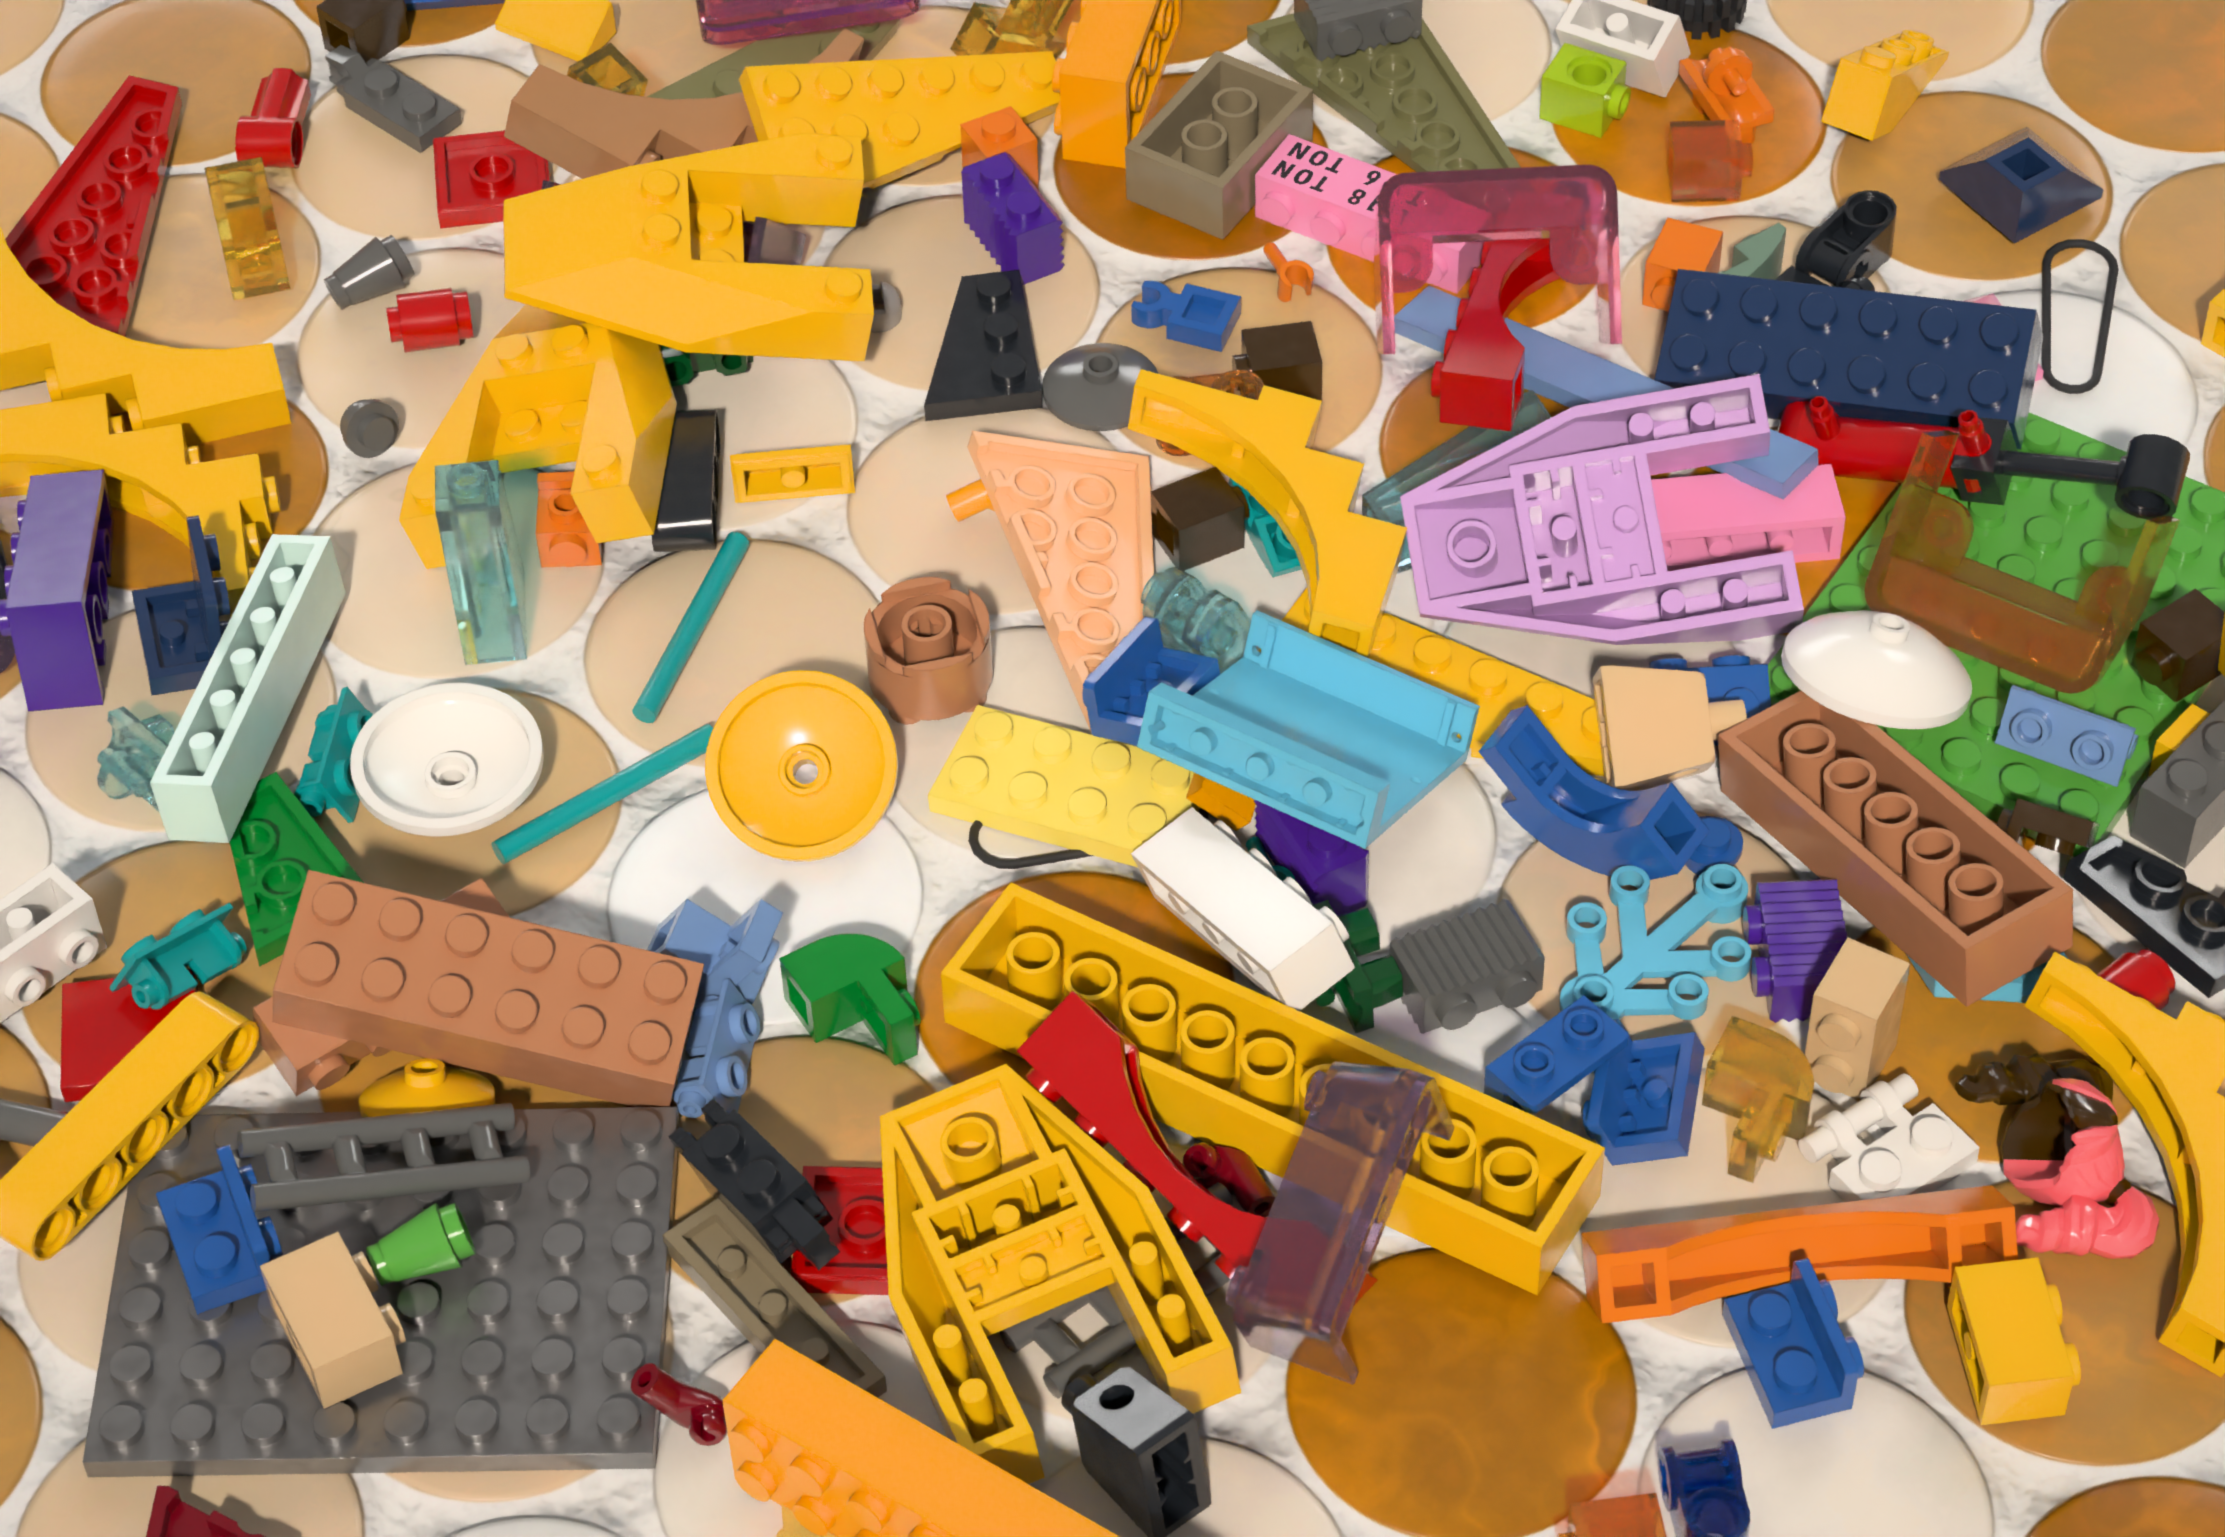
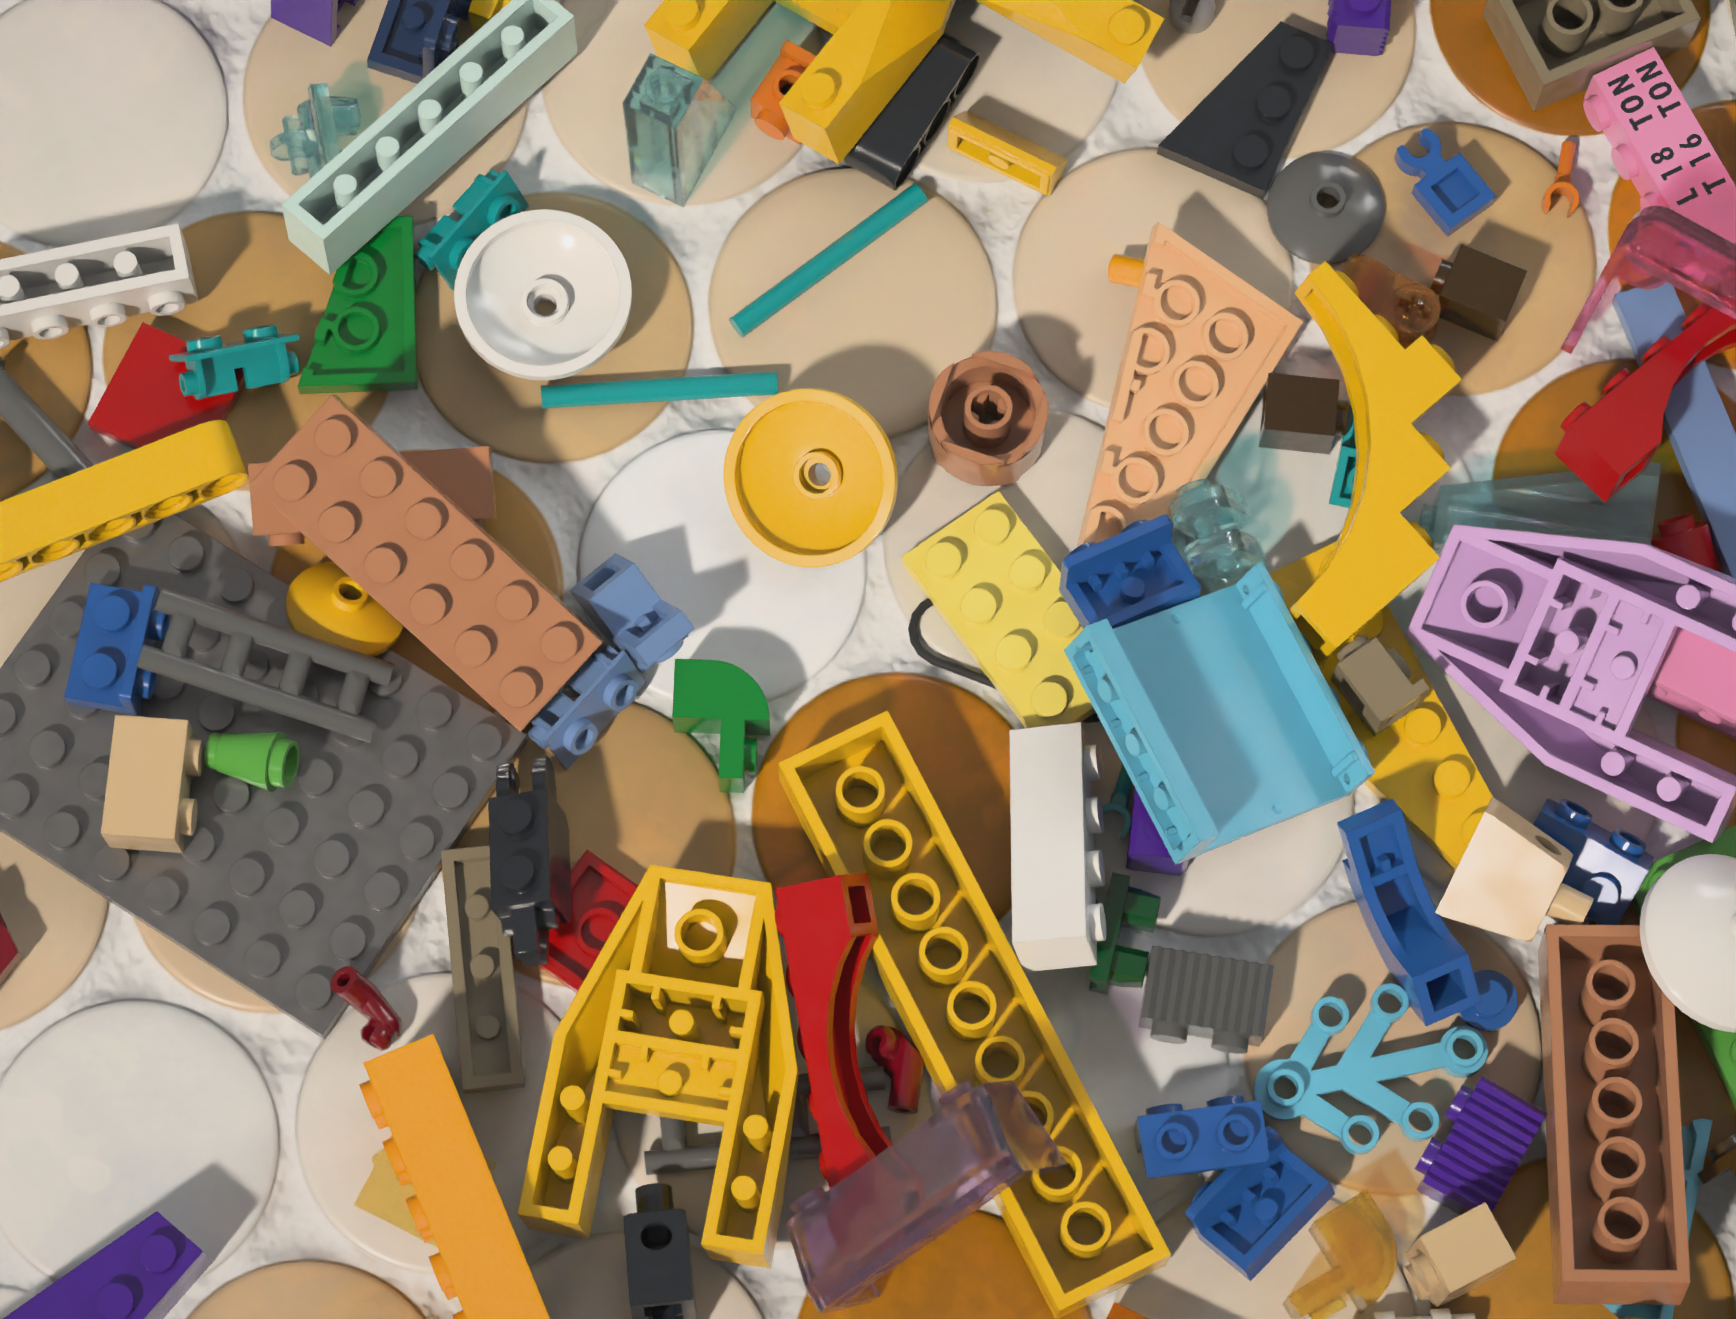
camera: 30 degrees right, 25 degrees up
(1428, 647) = (1376, 683): none -> dark tan brick

